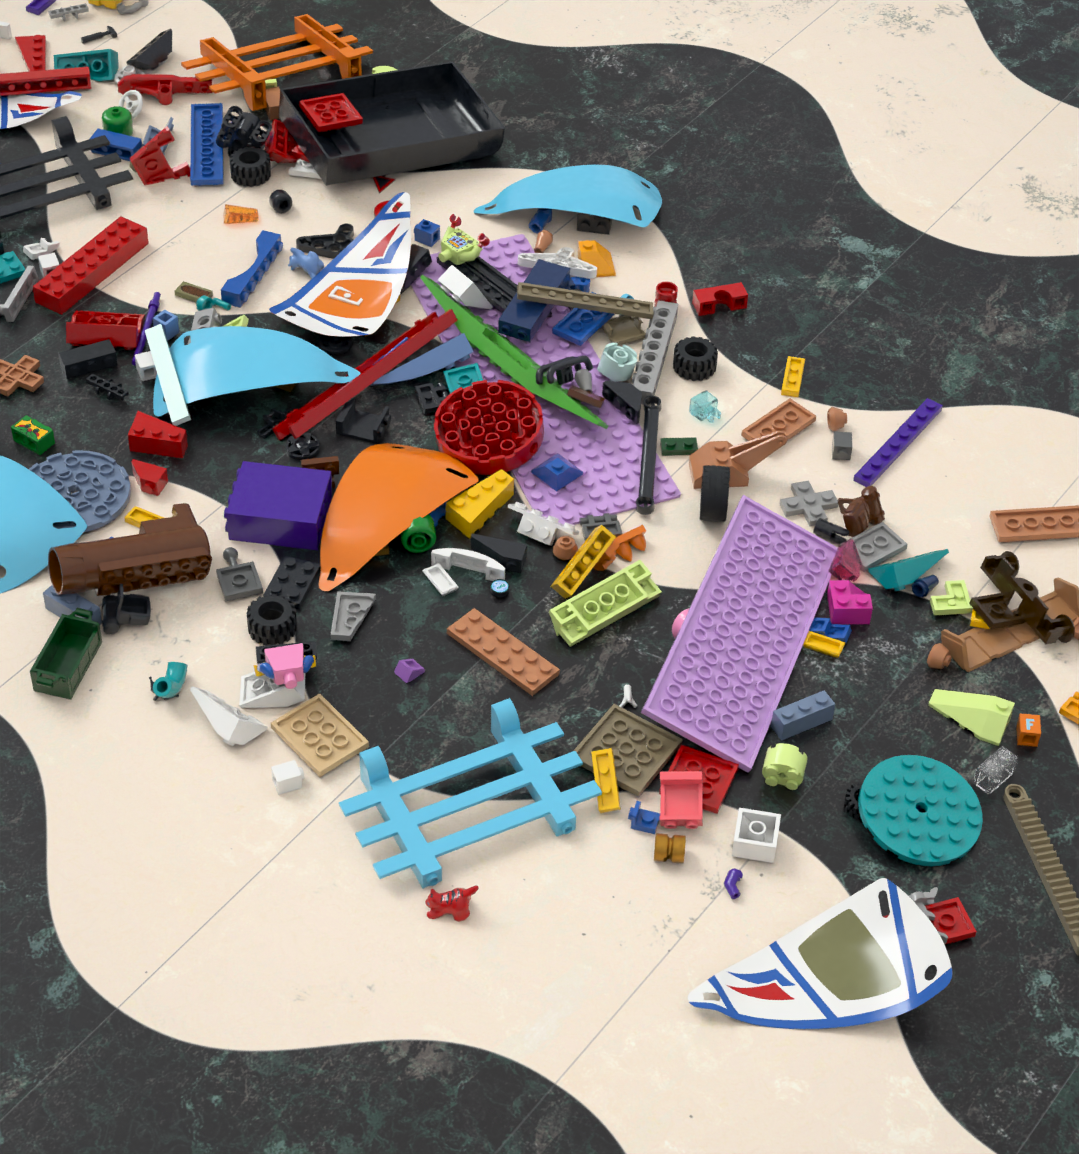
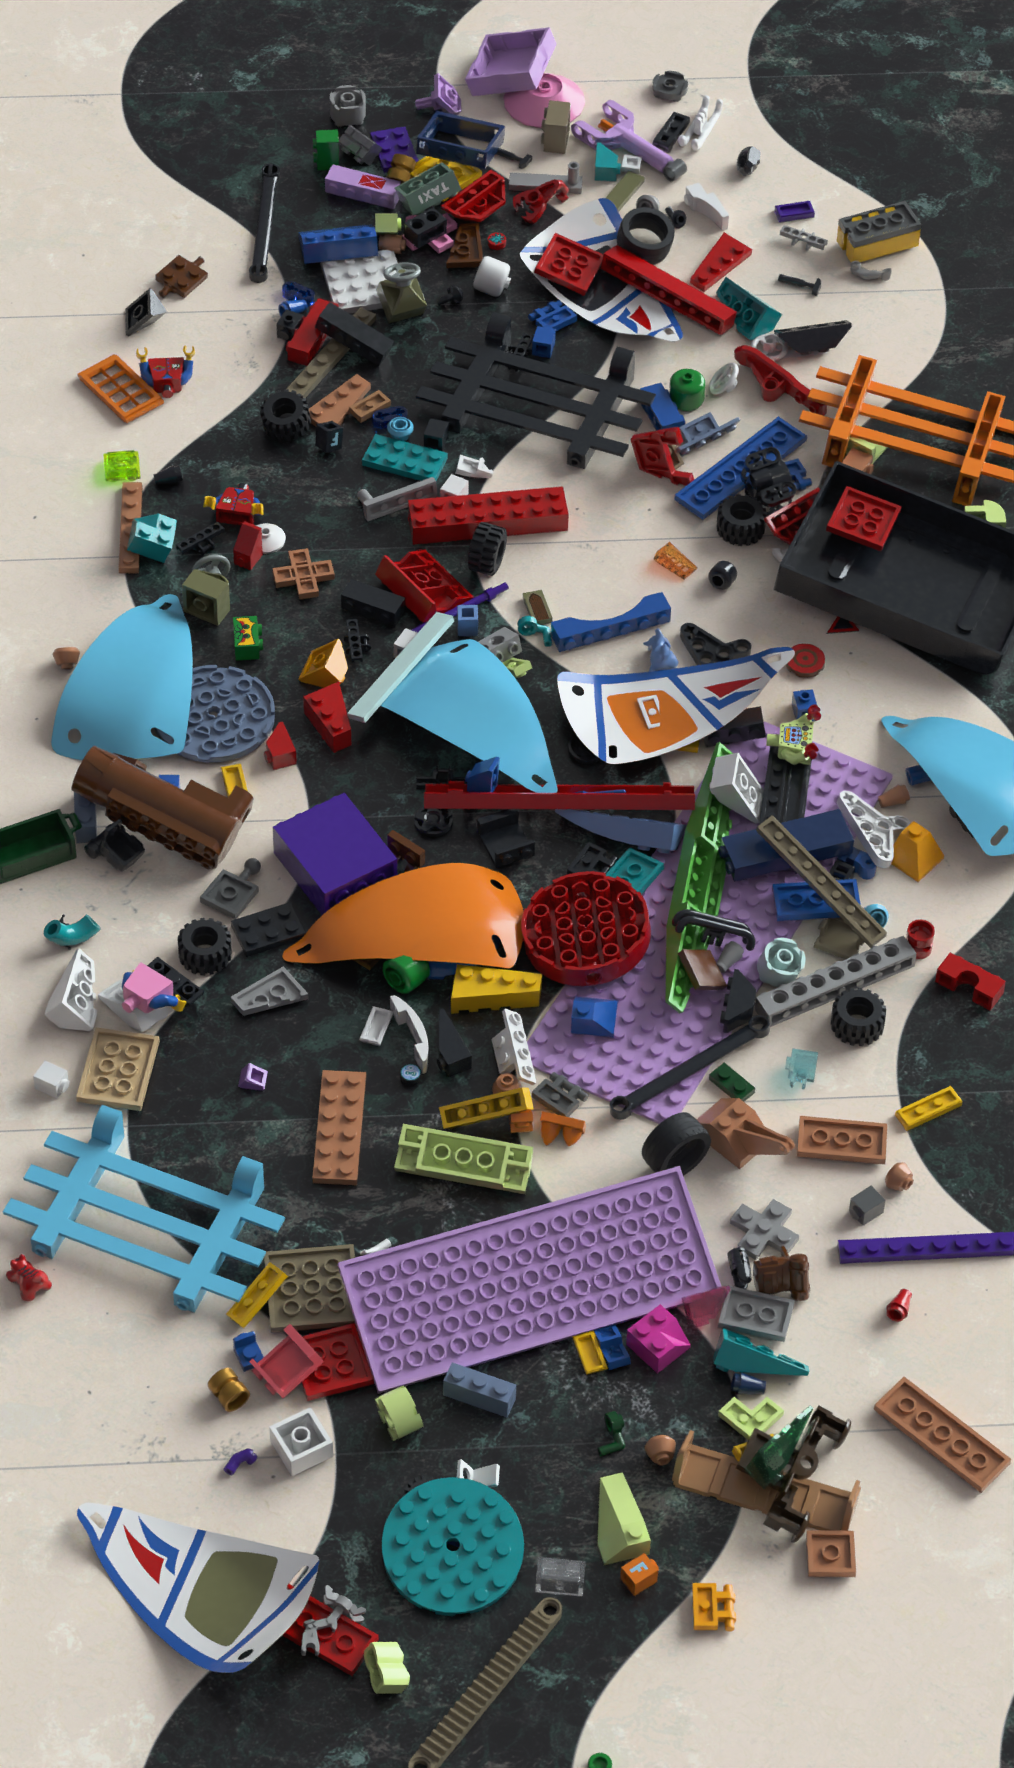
camera: 50 degrees right, 5 degrees up
(109, 412) = (325, 665): none -> light orange slope
(124, 277) = (487, 548): none -> black tyre
(312, 390) = (483, 776): none -> blue slope
(874, 757) = (486, 1475): none -> white bracket
(896, 667) = (614, 1425): none -> dark green plate
(933, 481) = (899, 1306): none -> red cone
(994, 910) = (386, 1667): none -> yellowish green brick
(1003, 595) = (774, 1455): none -> clear green wedge

